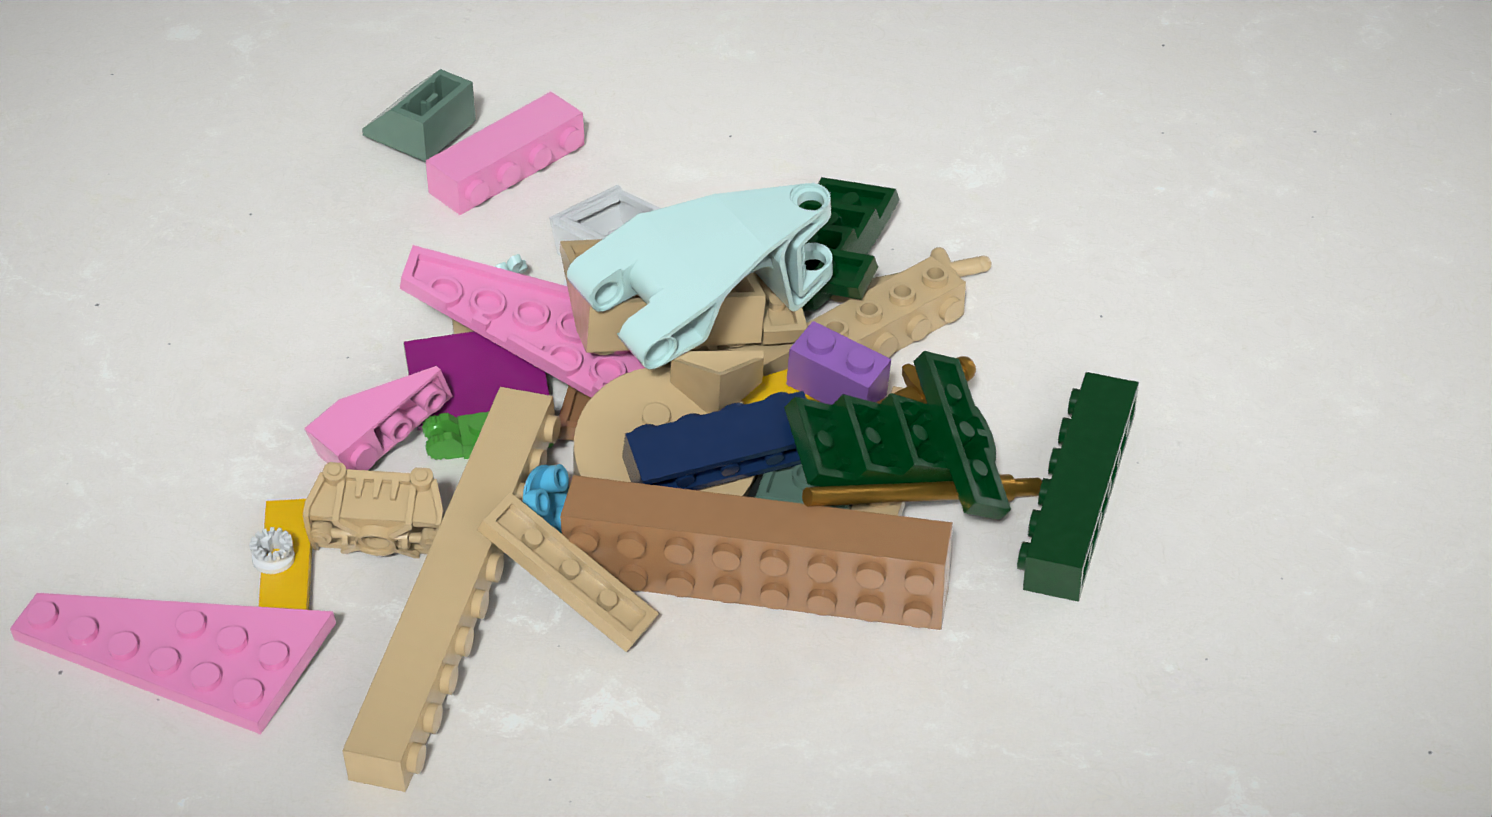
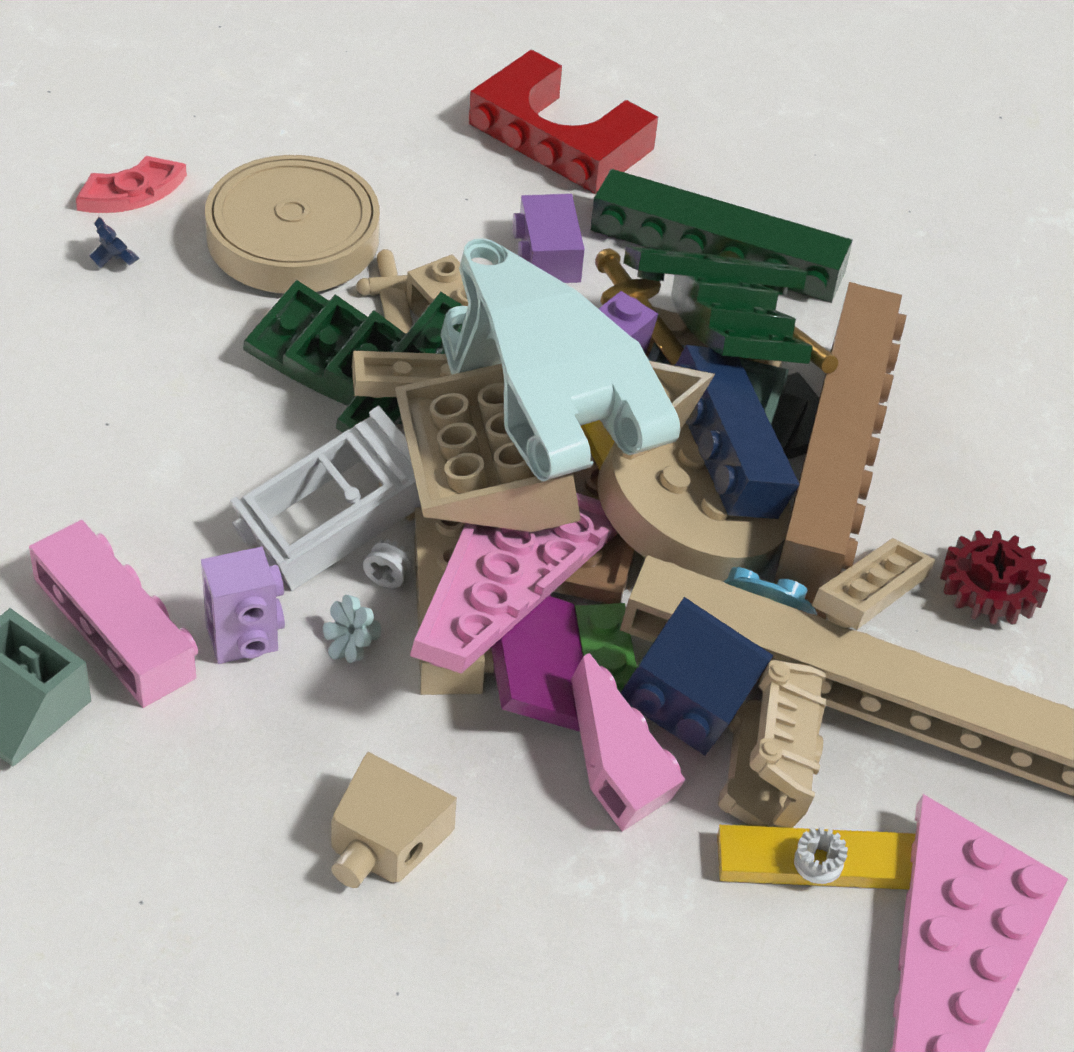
camera: 90 degrees left, 5 degrees up
(308, 310) = (387, 822): none -> tan torso
(440, 440) = (695, 676): none -> dark blue slope
(500, 201) = (242, 604): none -> lavender brick
(614, 686) = (995, 577): none -> dark red gear
(940, 98) = (110, 246): none -> dark blue plant
(998, 193) = (292, 222): none -> tan brick
(1034, 106) = (132, 187): none -> coral tile
(1034, 361) = (550, 235): none -> medium lavender brick
(1233, 320) = (509, 108): none -> red arch

